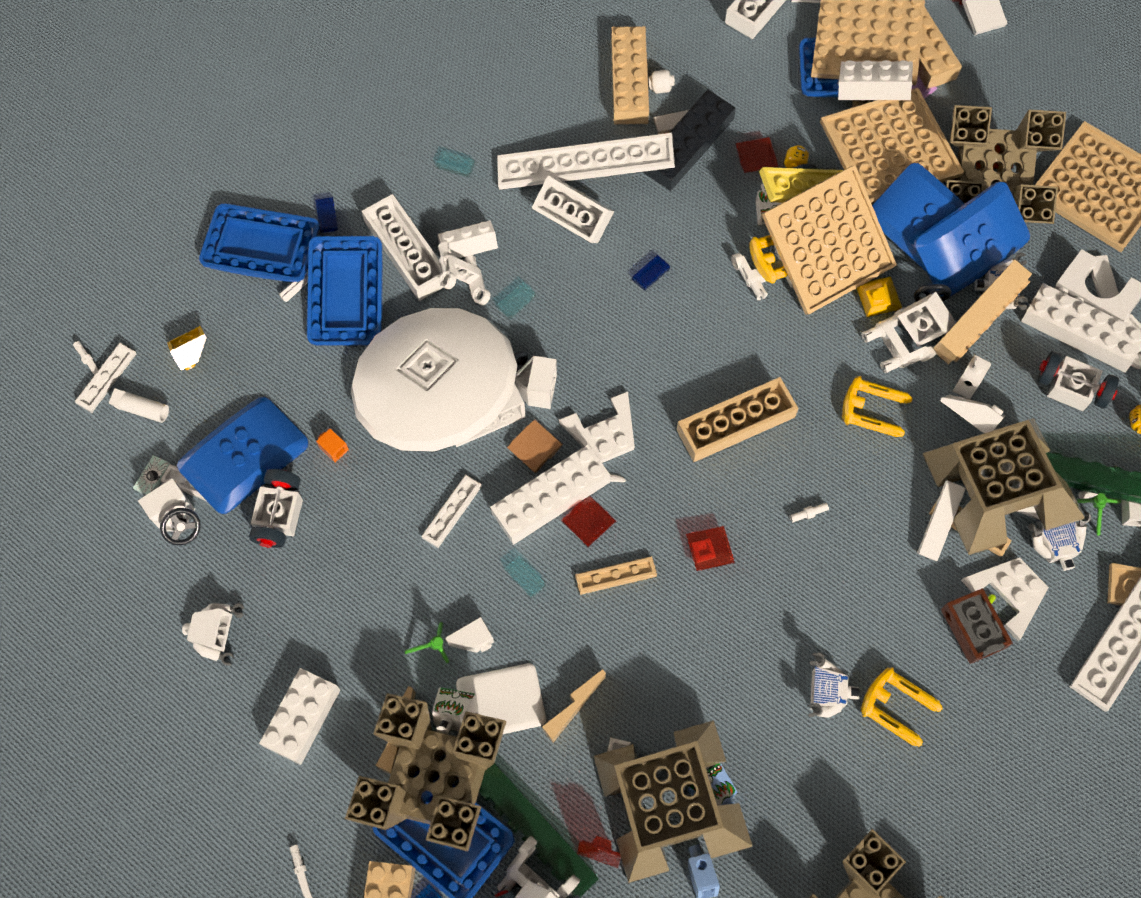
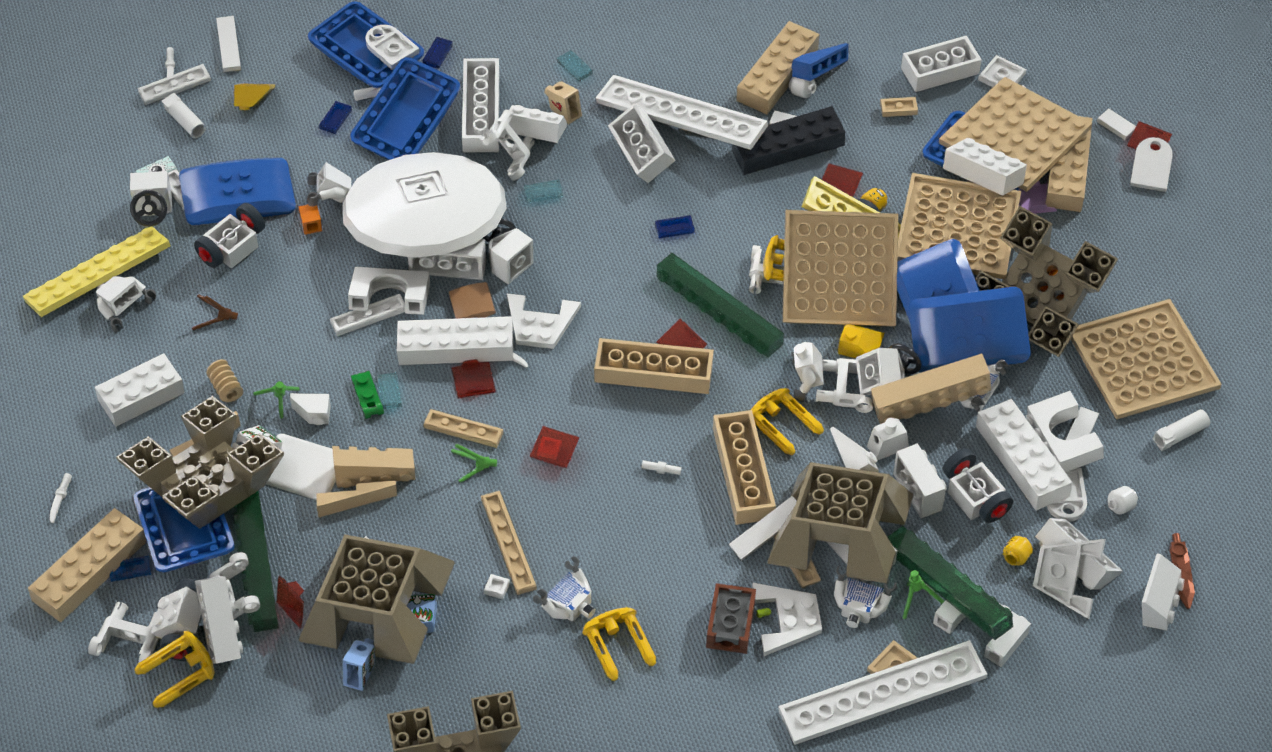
camera: 30 degrees right, 15 degrees down
(128, 308) = (228, 44): none -> white tile
(169, 616) = (96, 271): none -> light yellow plate
(280, 329) = (335, 117): none -> clear blue tile
(285, 233) = (390, 46): none -> white tile
(320, 588) = (224, 313): none -> reddish brown plant
(330, 400) = (330, 184): none -> white torso
(371, 660) = (224, 381): none -> tan piece
(470, 458) = (370, 280): none -> white arch
(474, 203) = (564, 101): none -> tan torso
(508, 593) = (367, 394): none -> green plate
(570, 665) = (372, 465): none -> tan wedge
(656, 600) = (481, 462): none -> bright green plant
(662, 55) = (819, 62): none -> blue slope
(735, 665) = (508, 542): none -> tan tile
(739, 379) = (681, 335): none -> clear red piece
(745, 327) = (720, 305): none -> clear green brick
(751, 59) = (898, 106): none -> tan plate
(757, 715) = (496, 586): none -> white tile
(865, 346) = (809, 368): none -> white torso
(880, 473) = (743, 466): none -> tan brick
(1028, 400) = (921, 479): none -> white brick

